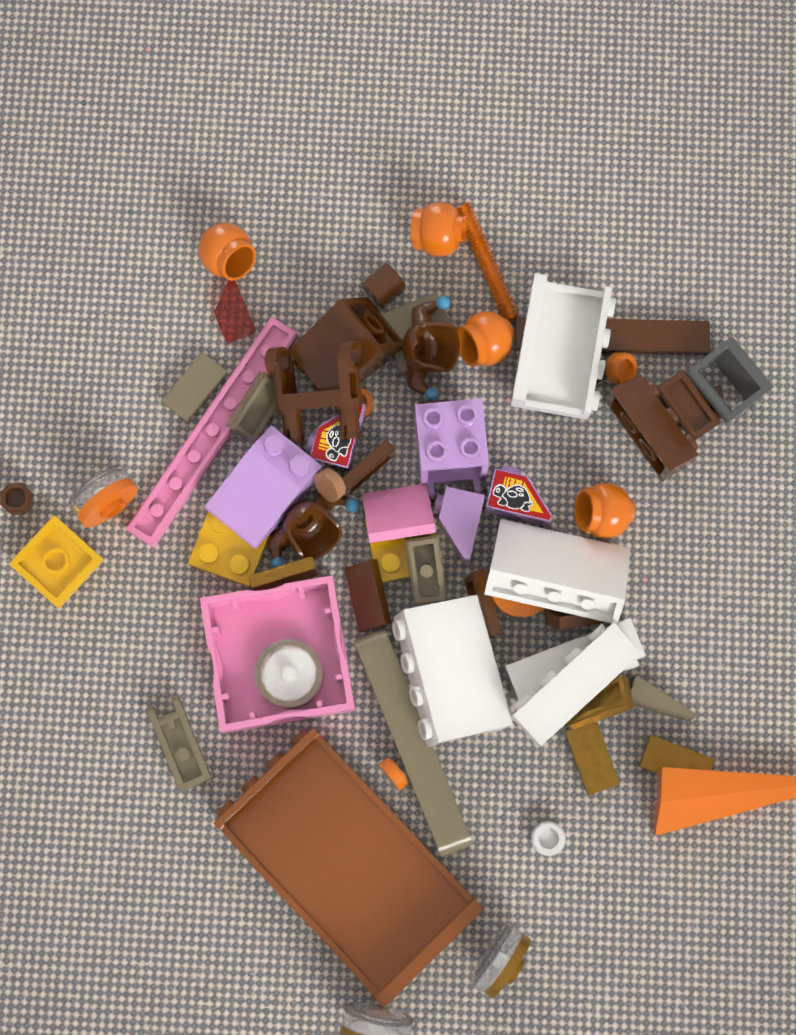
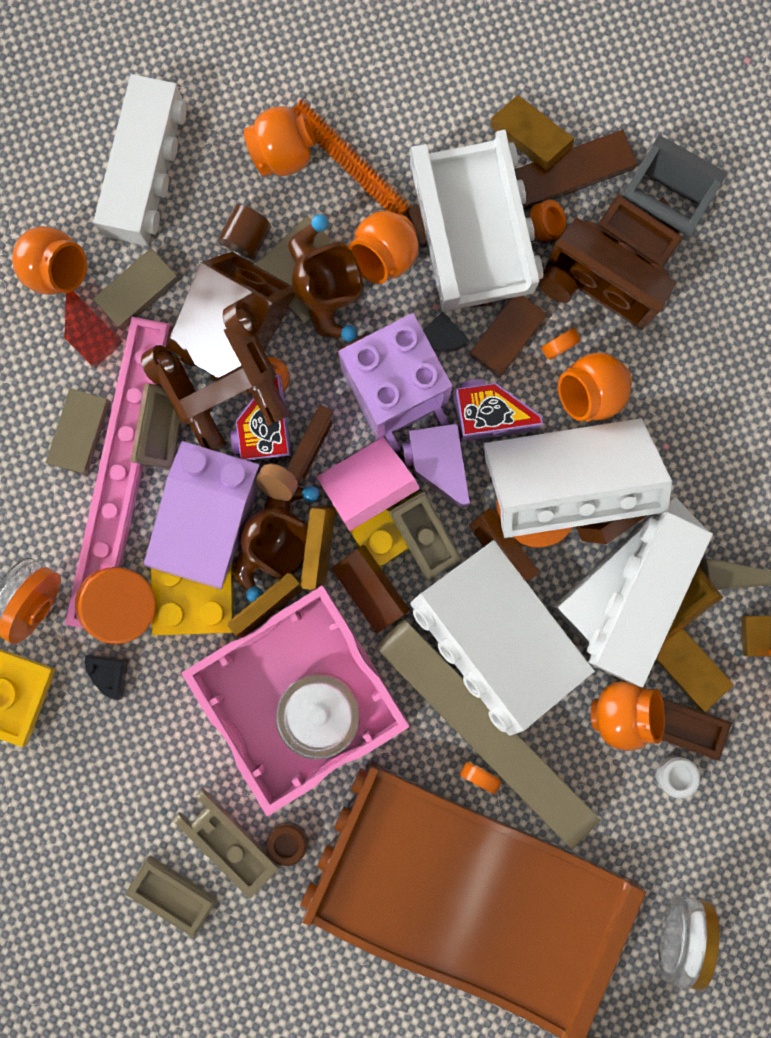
camera: 25 degrees left, 5 degrees up
(120, 768) = (171, 896): none -> dark tan tile
(141, 580) = (107, 674): none -> black tile
(170, 528) = (115, 605): none -> orange head
(224, 764) = (287, 843): none -> reddish brown tile
(283, 296) = (136, 289): none -> dark tan tile
(326, 201) = (140, 160): none -> white brick
(341, 546) = (318, 547): none -> pearl gold tile
(503, 424) = (445, 335): none -> black tile
(526, 771) = (628, 716): none -> orange piece
(554, 444) = (508, 335): none -> reddish brown tile
(569, 802) = (695, 729): none -> reddish brown tile
(592, 467) = (561, 343): none -> orange tile
(608, 420) = (558, 284): none -> reddish brown tile
(636, 296) = (532, 132): none -> pearl gold tile

